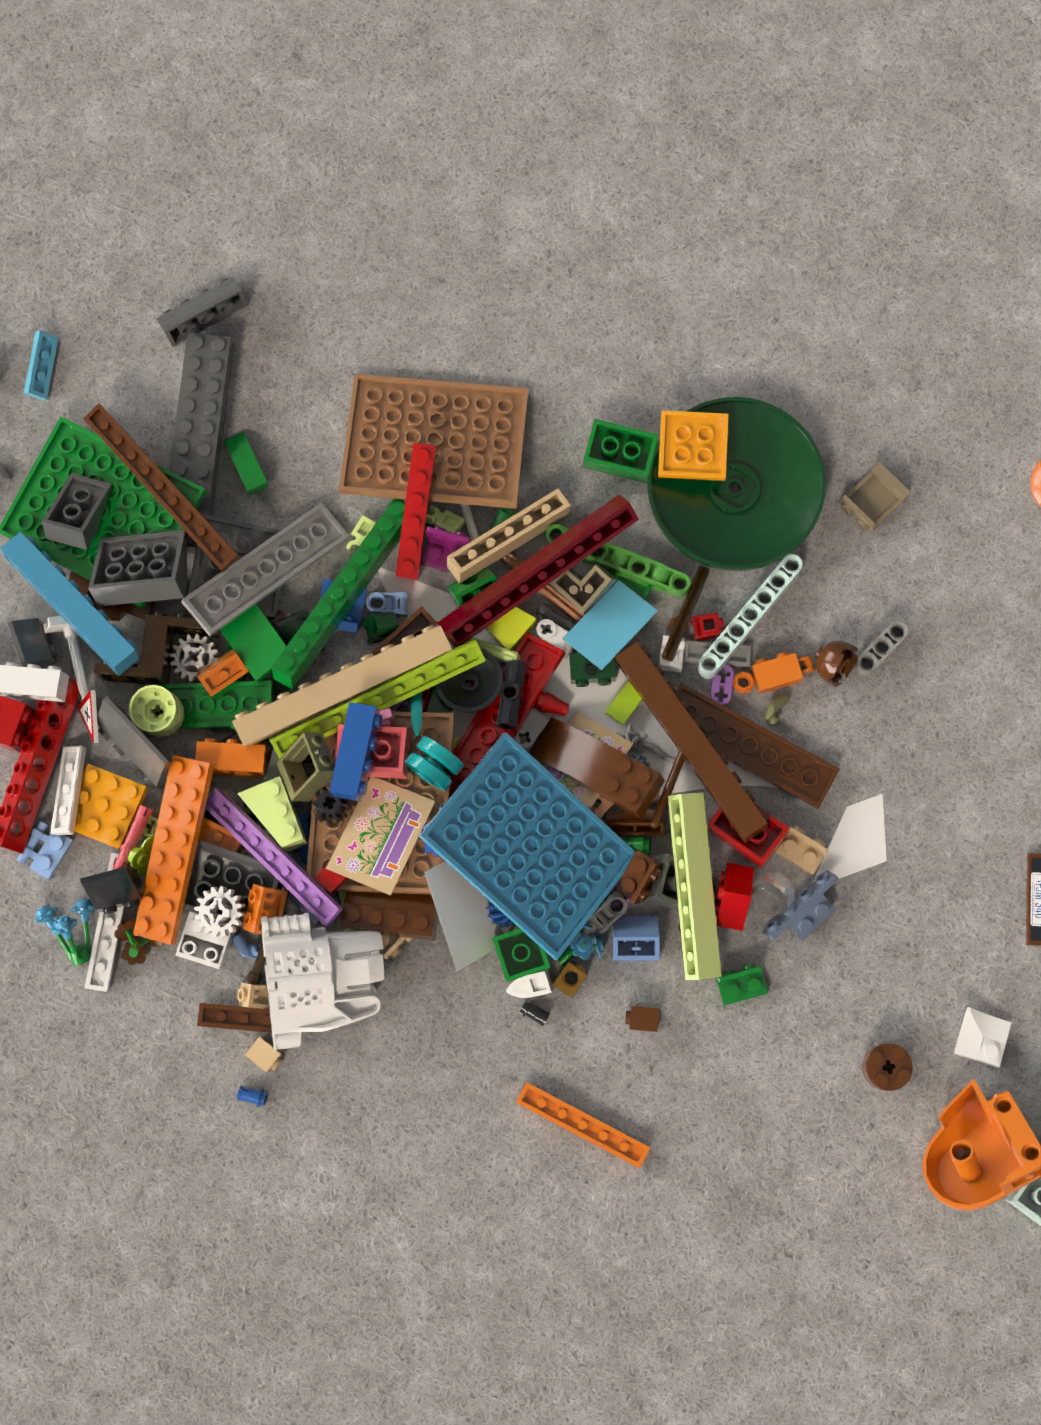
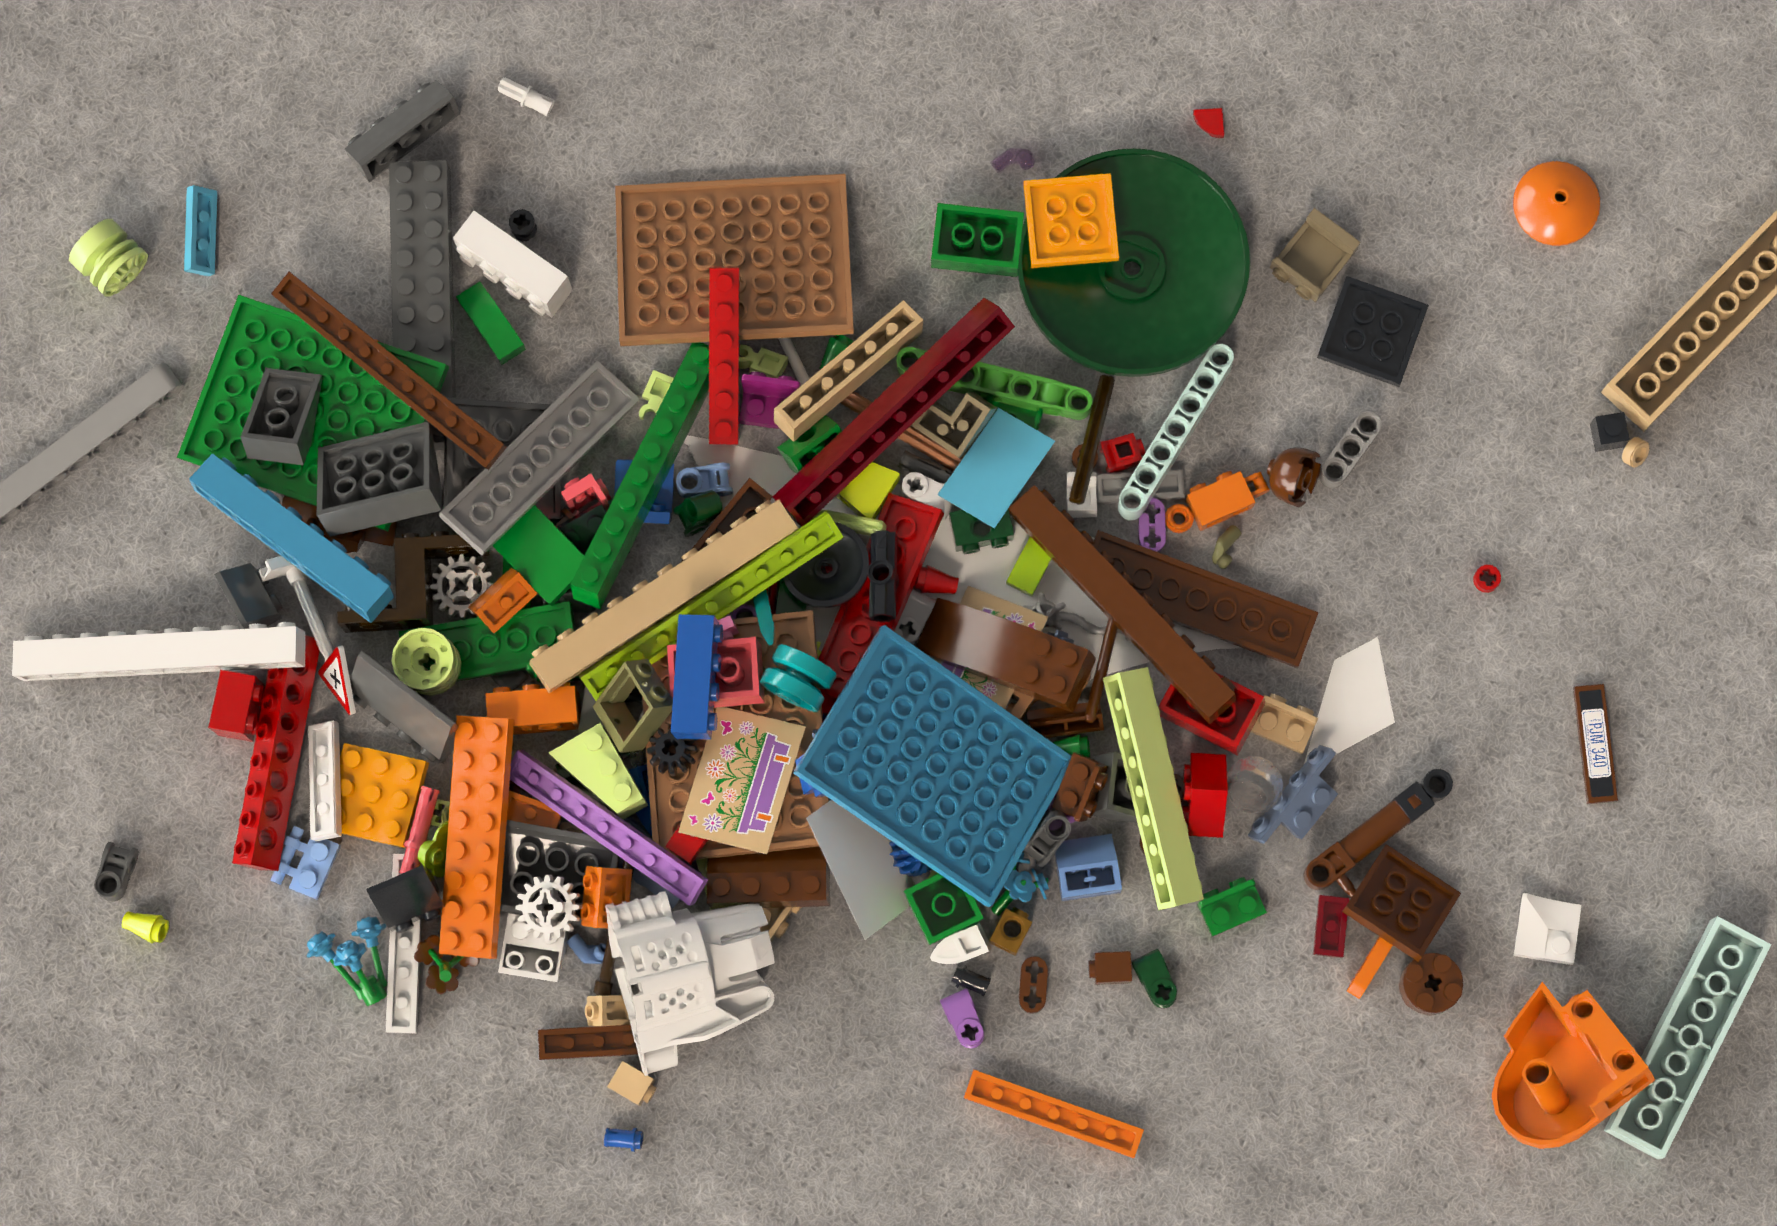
camera: 10 degrees left, 0 degrees up
(268, 421) = (512, 264): none -> white brick
(284, 399) = (516, 219): none -> black bush
(294, 599) = (583, 491): none -> coral bracket
(299, 298) = (527, 96): none -> white axle
(524, 1037) = (962, 1014): none -> medium lavender piece
(587, 1024) = (1025, 984): none -> reddish brown beam
(656, 392) = (1013, 156): none -> clear purple arm
(674, 1028) = (1154, 974): none -> dark green piece
(809, 386) = (1210, 121): none -> red tile
(816, 1011) = (1330, 926): none -> dark red plate
(846, 1040) = (1369, 967): none -> orange beam
(860, 943) = (1376, 831): none -> reddish brown piece
(873, 1001) = (1402, 902): none -> reddish brown plate
(910, 561) = (1372, 331): none -> black plate
(977, 756) = (1481, 585): none -> red bush

